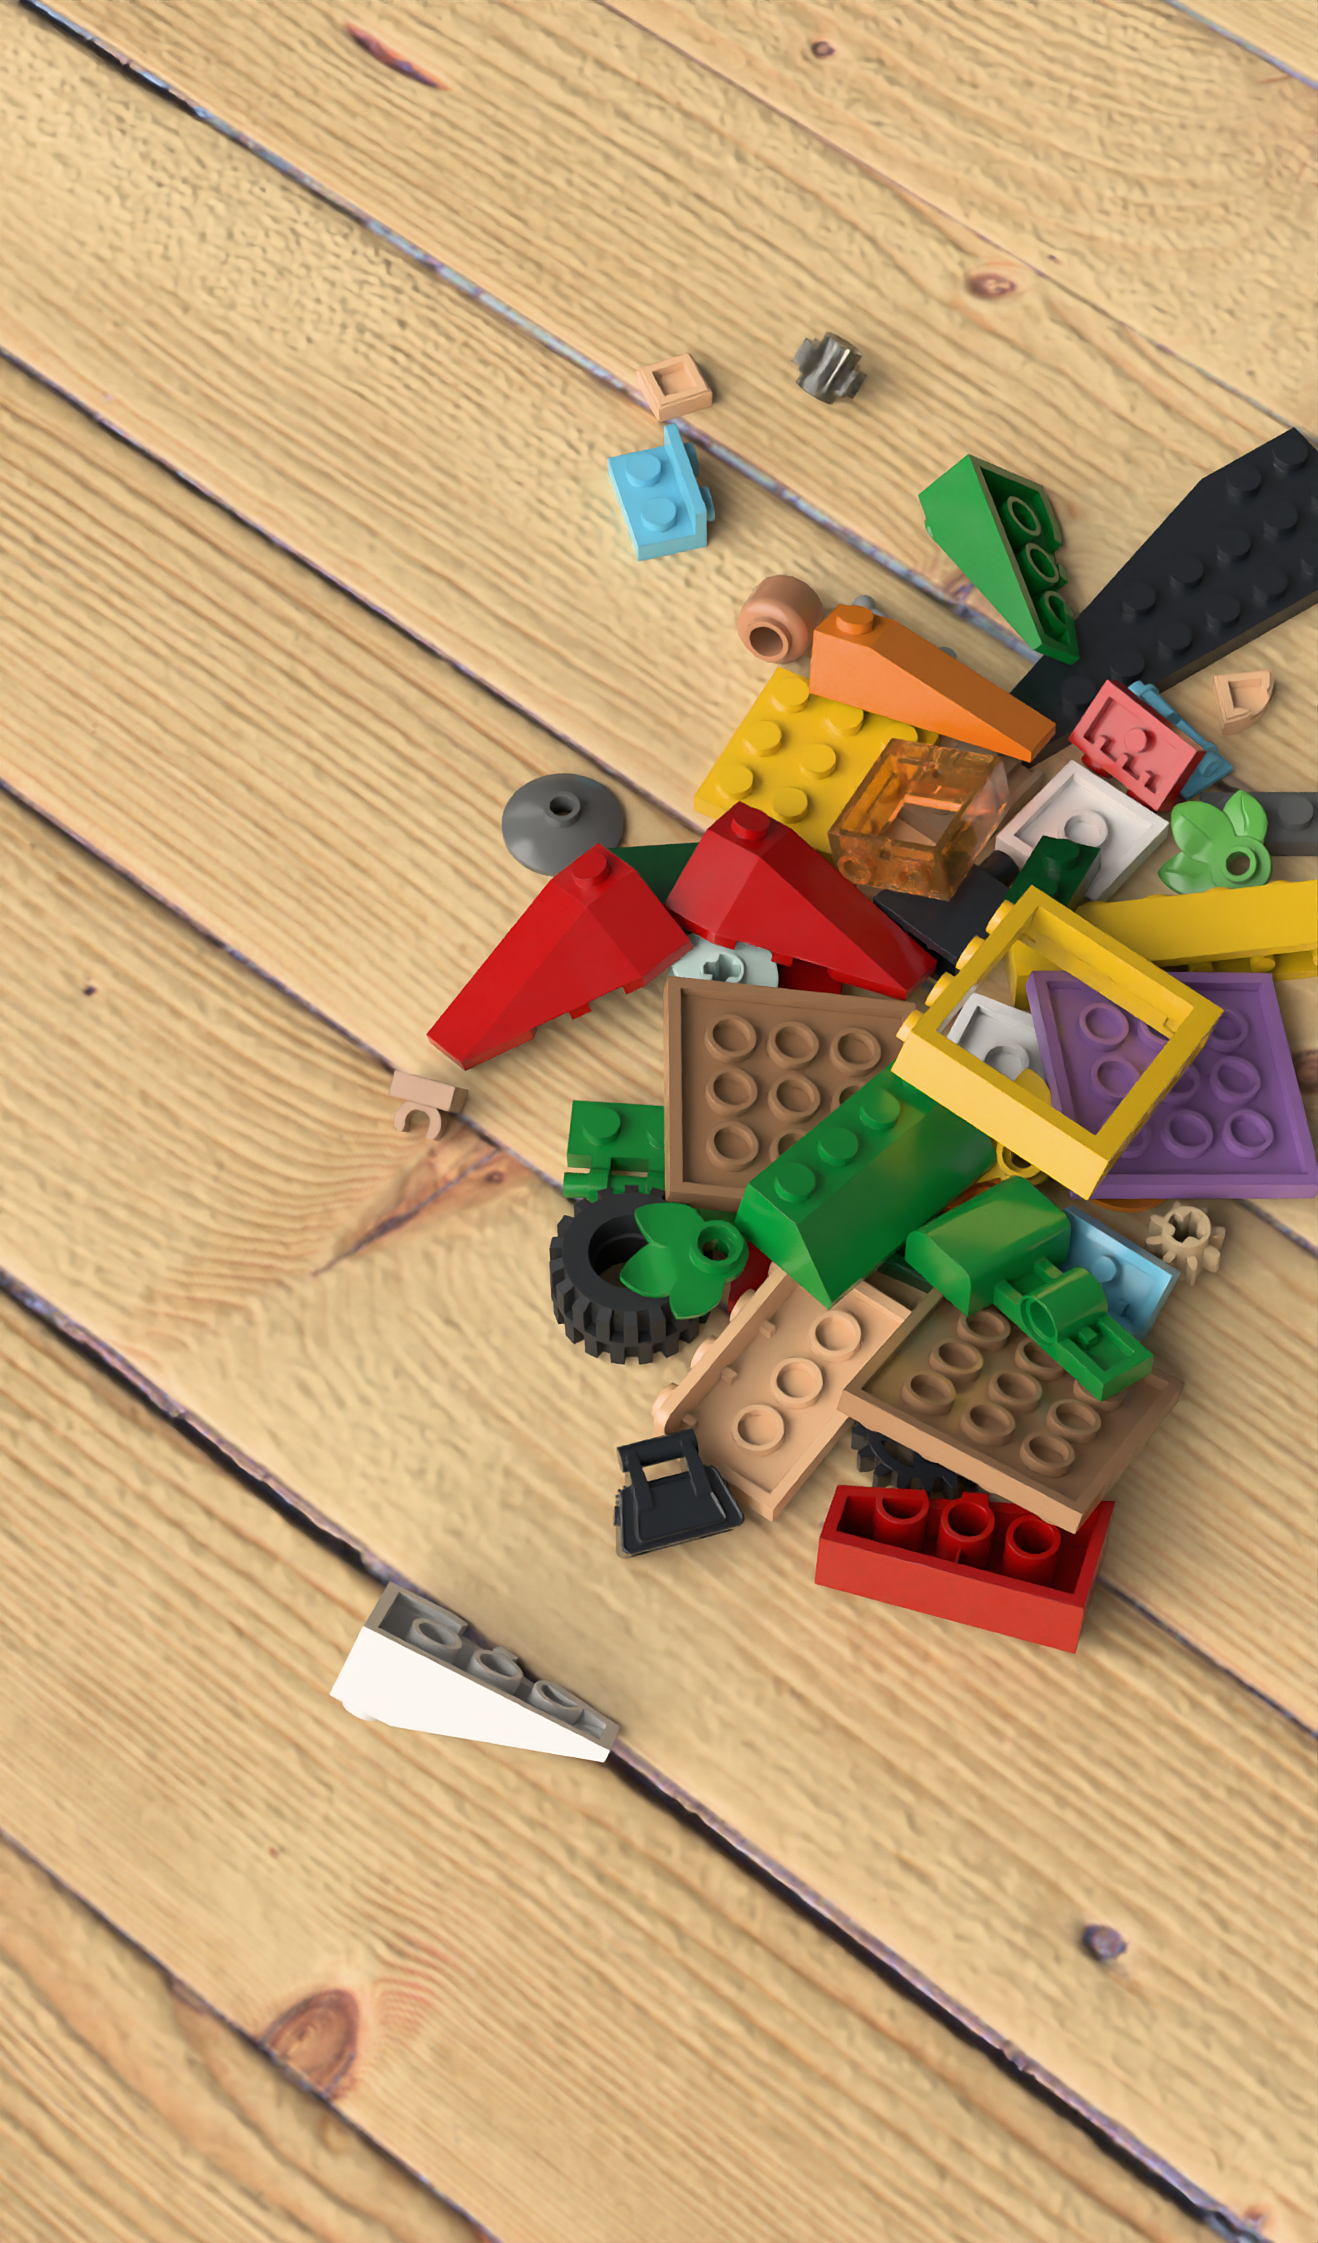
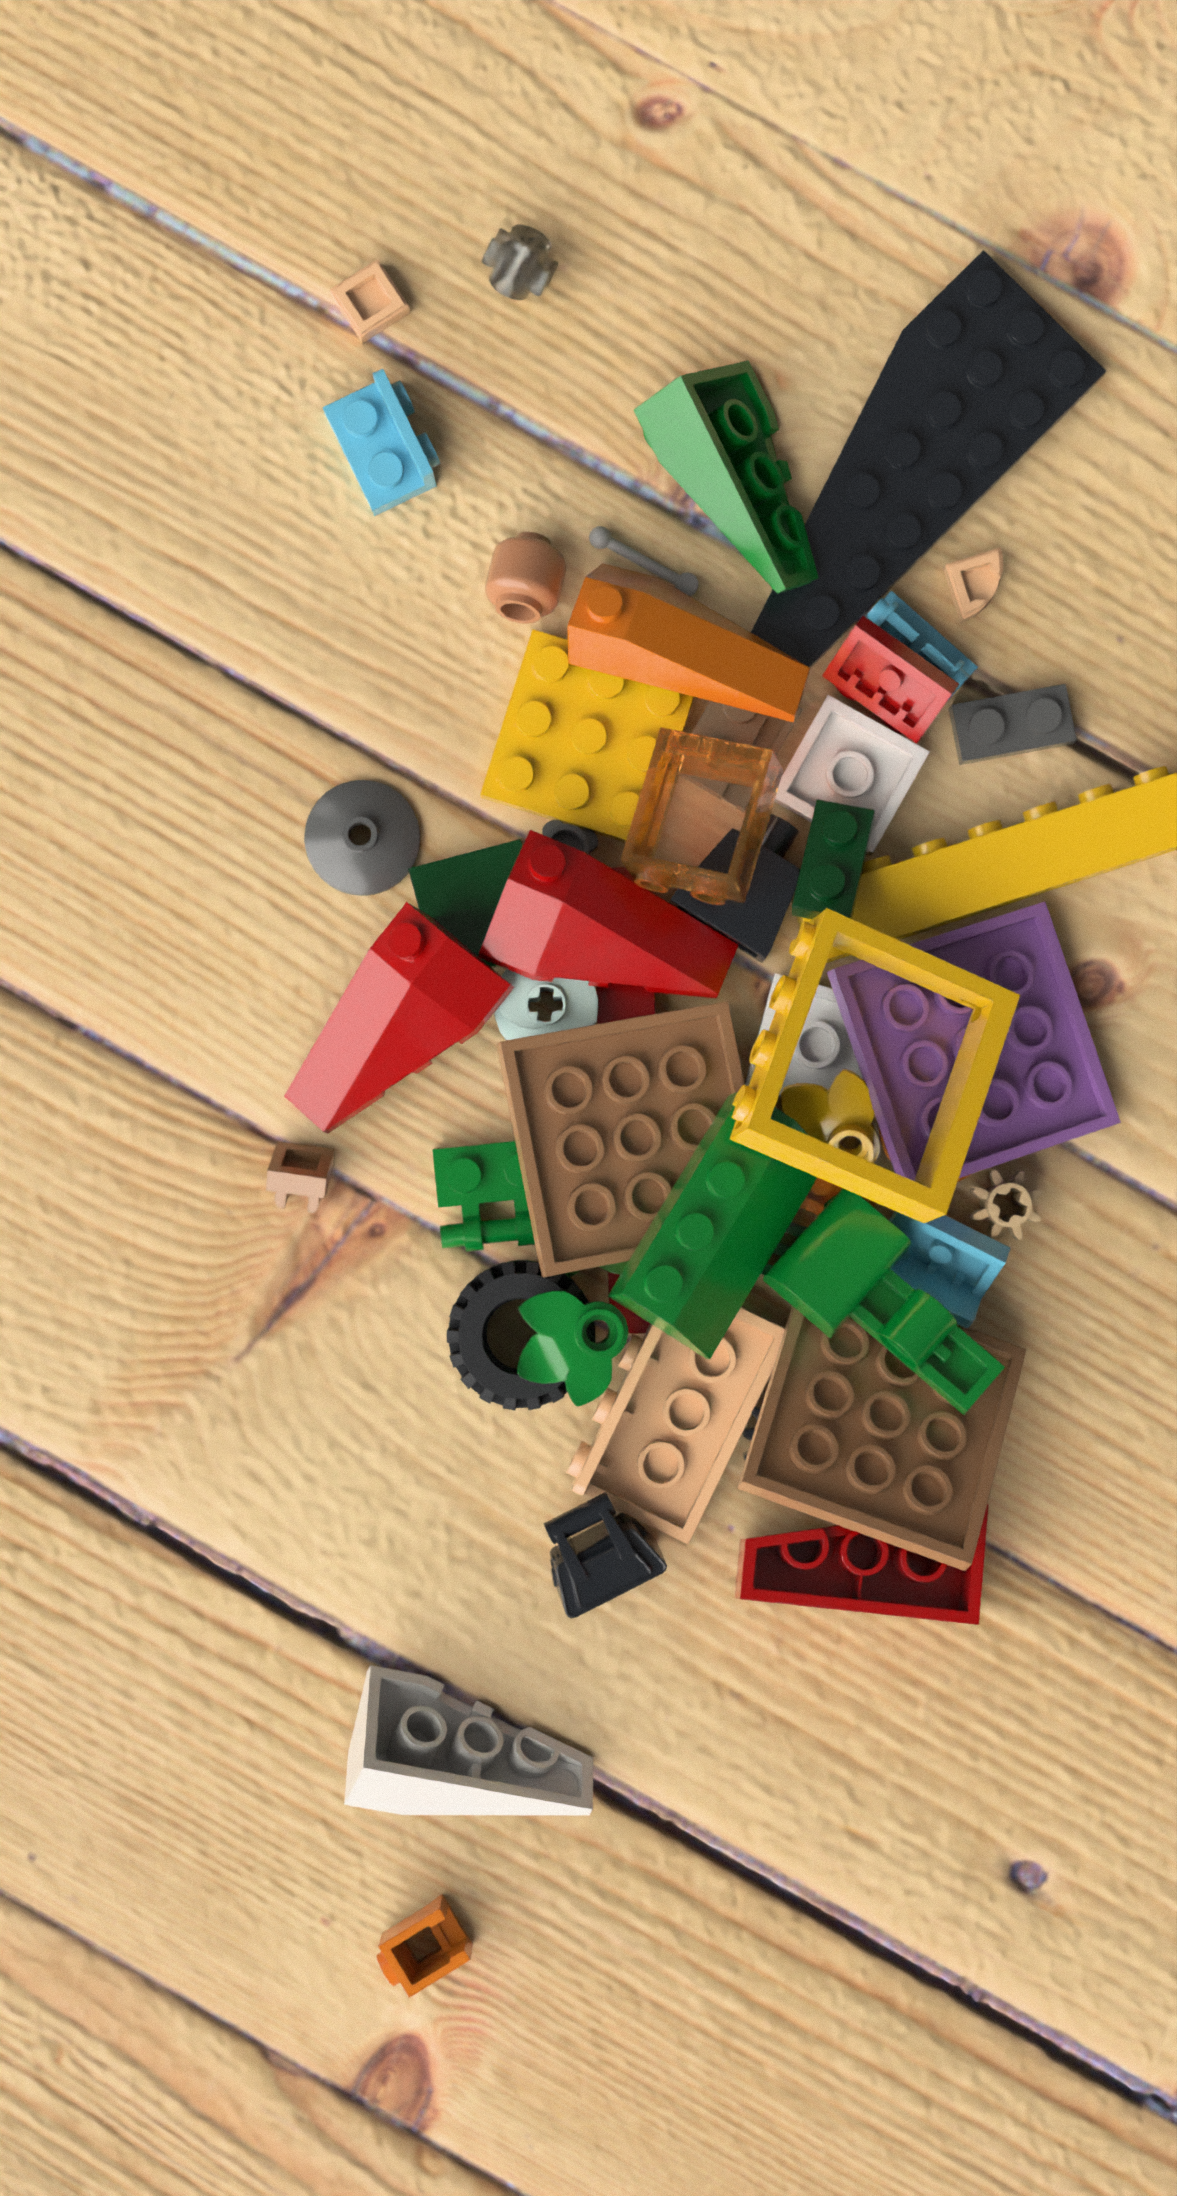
camera: 10 degrees left, 30 degrees up
(376, 1853) = (401, 1964): none -> orange window
(1211, 843) = (972, 763): bright green plate -> none

